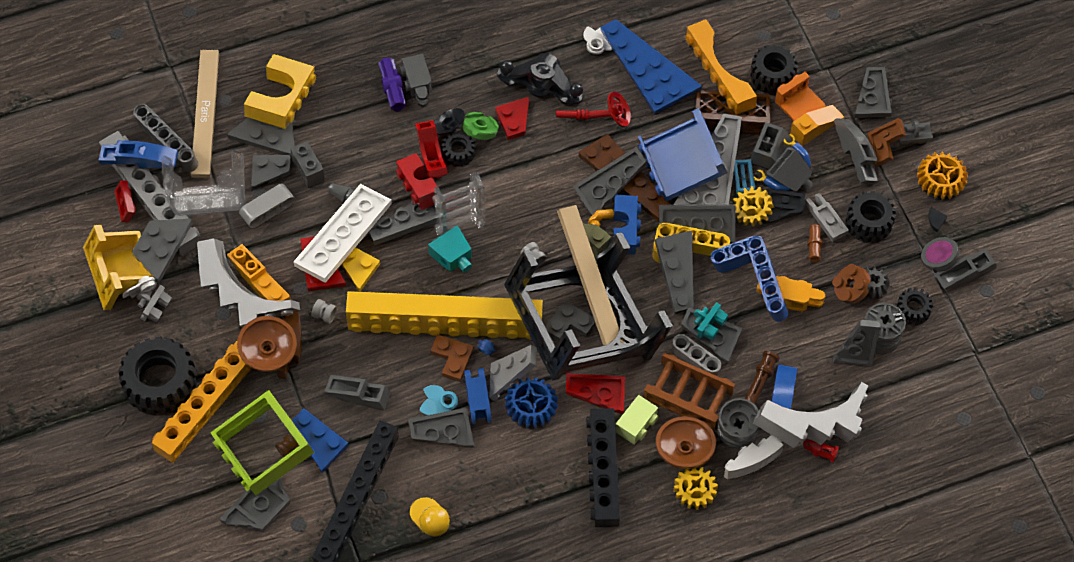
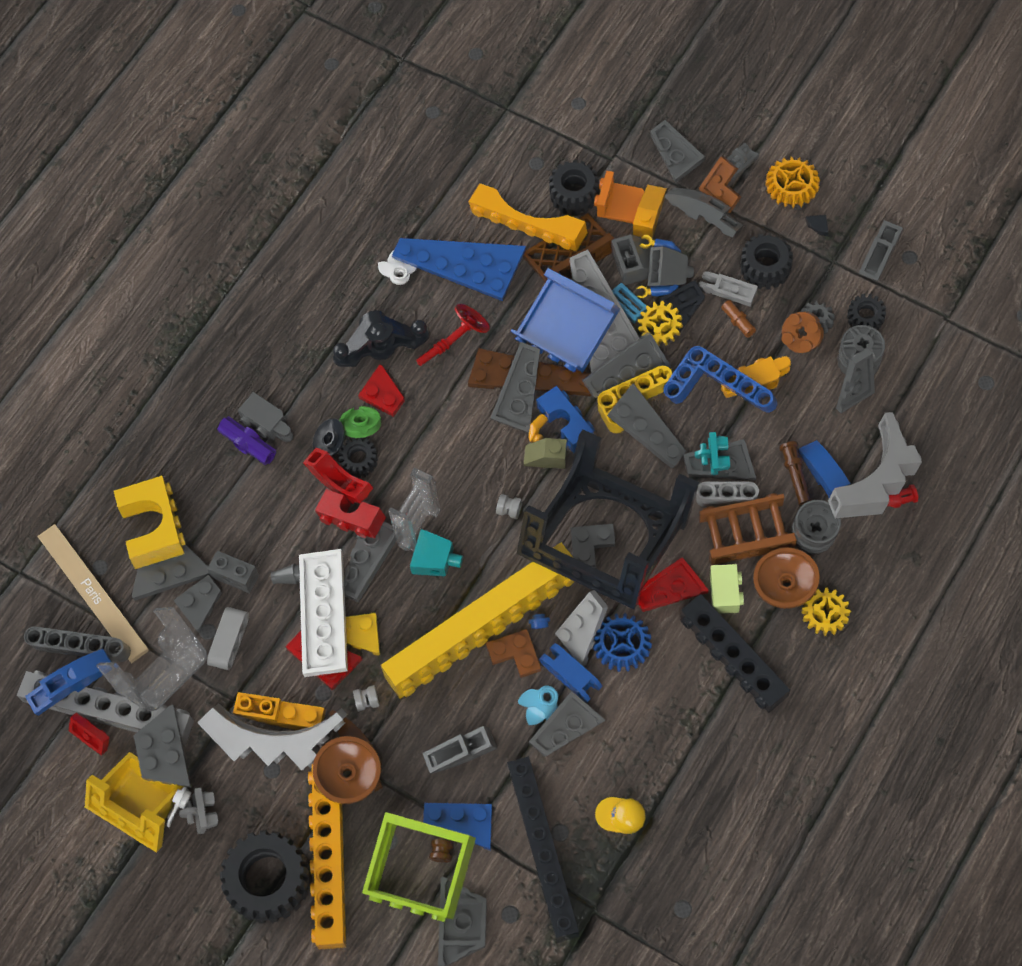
camera: 30 degrees left, 5 degrees up
(589, 274) = (581, 489): tan tile -> none
(753, 457) = (850, 546): white slope -> none
(940, 253) = (849, 252): tile -> none

